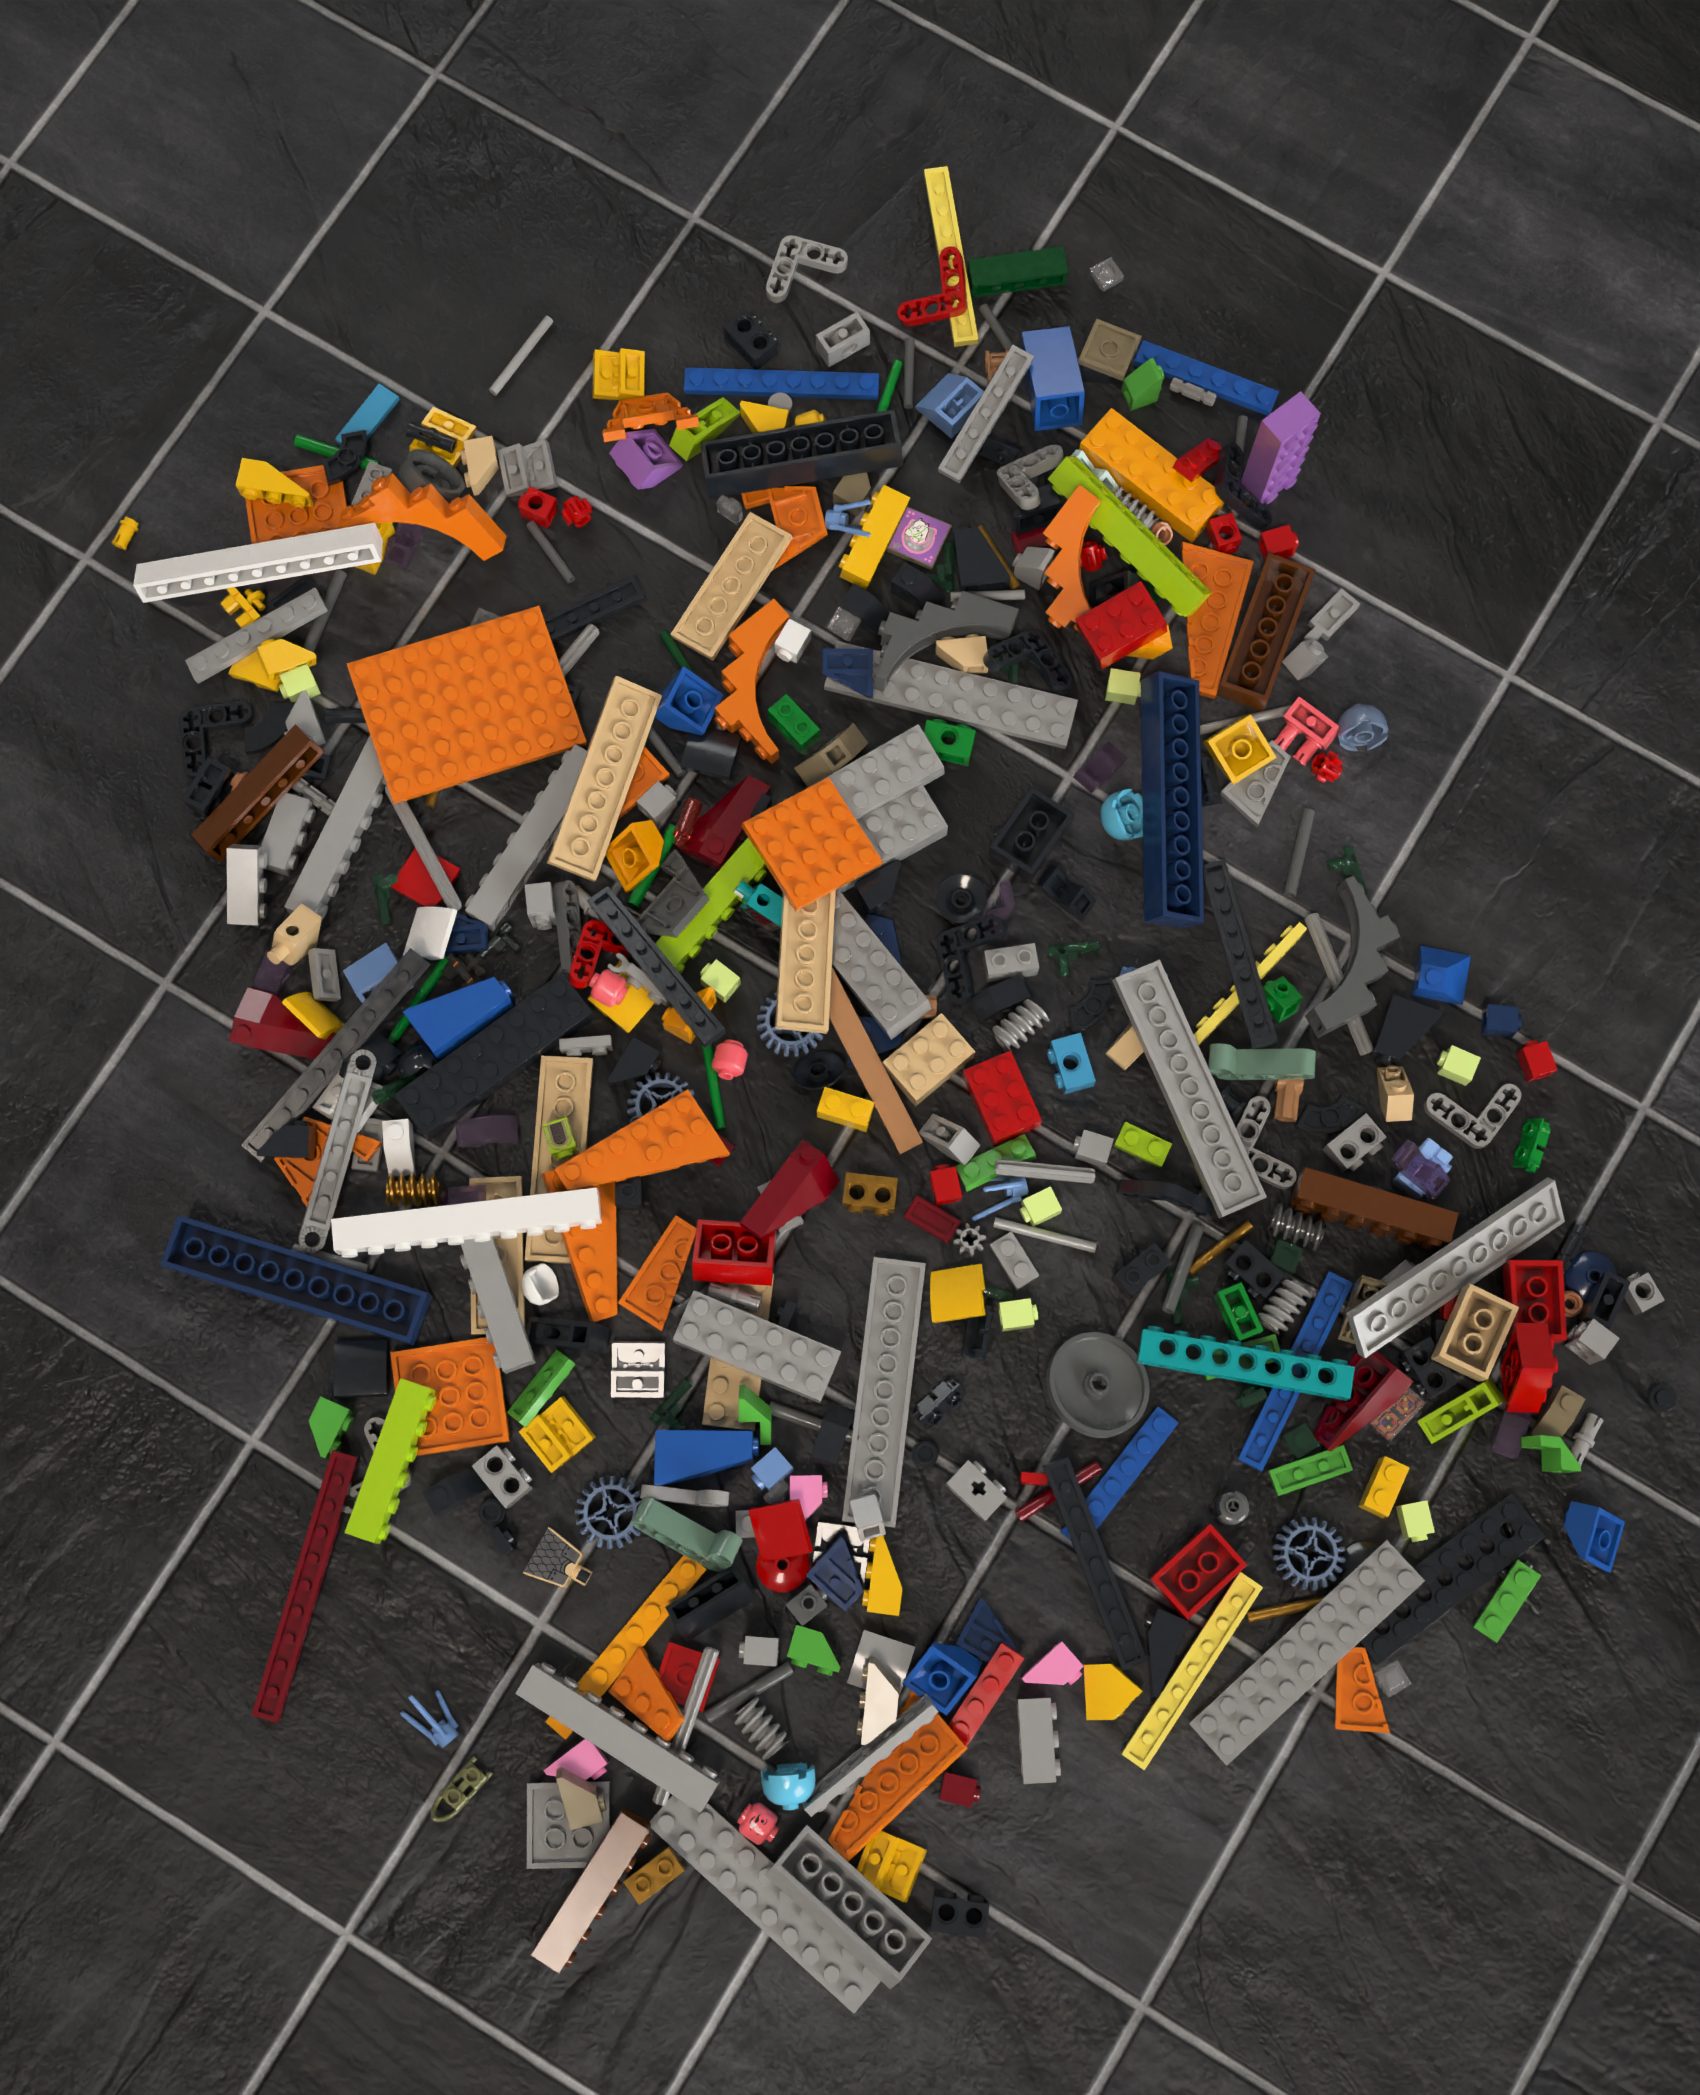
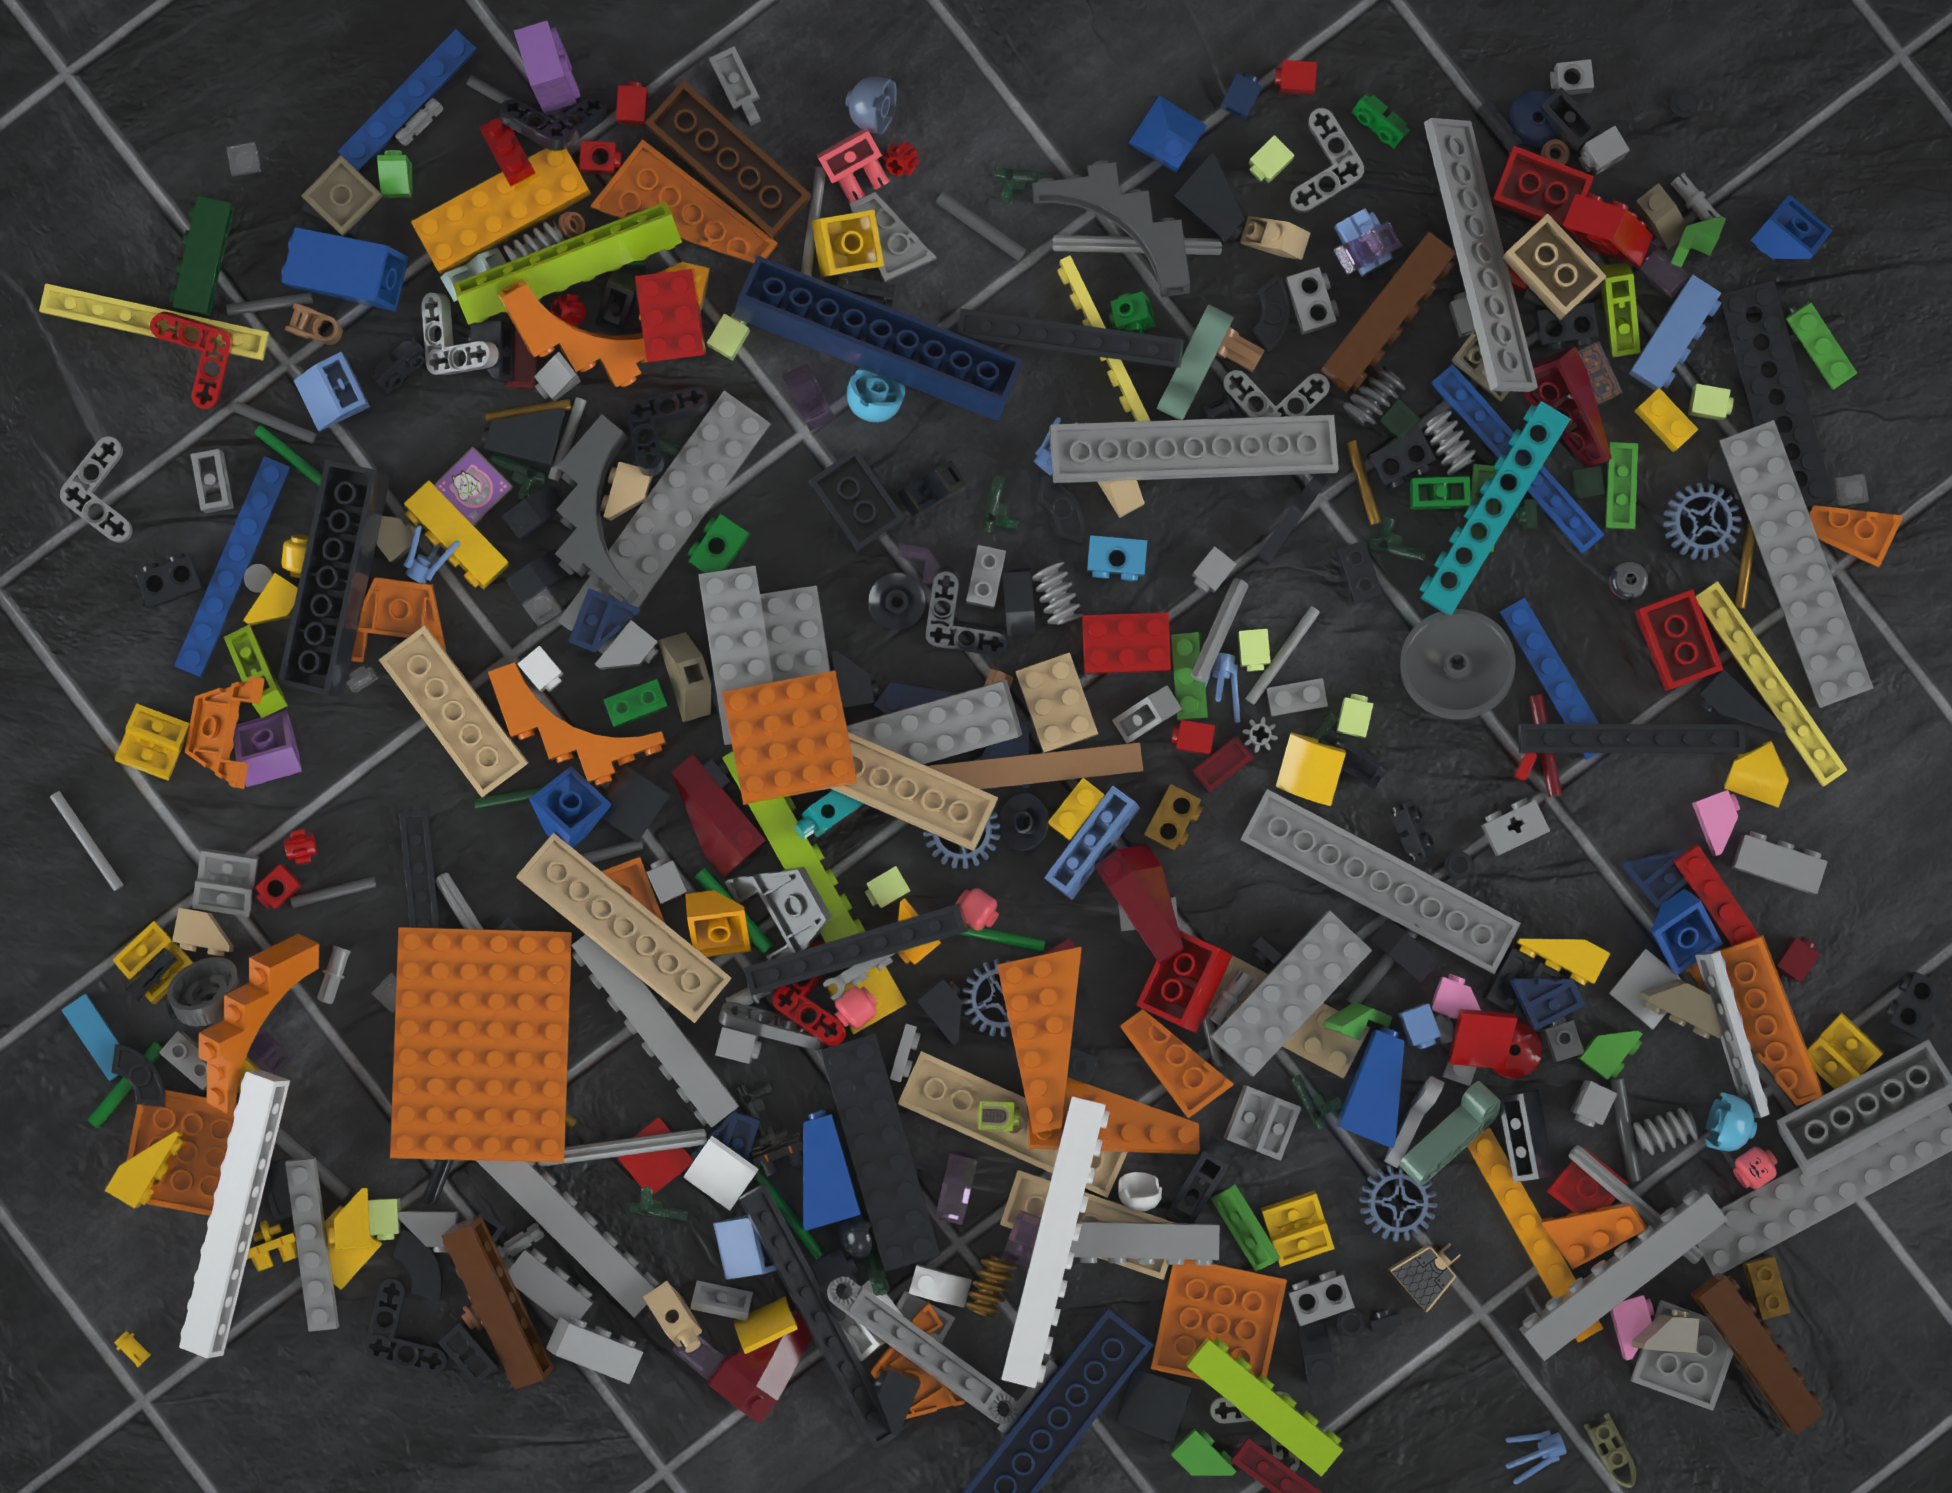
camera: 70 degrees left, 10 degrees up
(483, 575) = (333, 975): none -> light grey axle
(687, 821) = (701, 857): clear red cylinder -> none
(822, 1132) = (1092, 842): none -> medium blue brick
(836, 702) = (629, 649): none -> light grey slope
(867, 1517) = (1503, 947): light grey brick -> none
(986, 413) = (367, 361): light grey plate -> none
(1142, 1145) = (1228, 517): lime plate -> none
(1182, 1269) = (1372, 529): dark grey piece -> none
(1305, 658) = (775, 131): light grey brick -> none
(1462, 1466) = (1675, 333): none -> medium blue brick

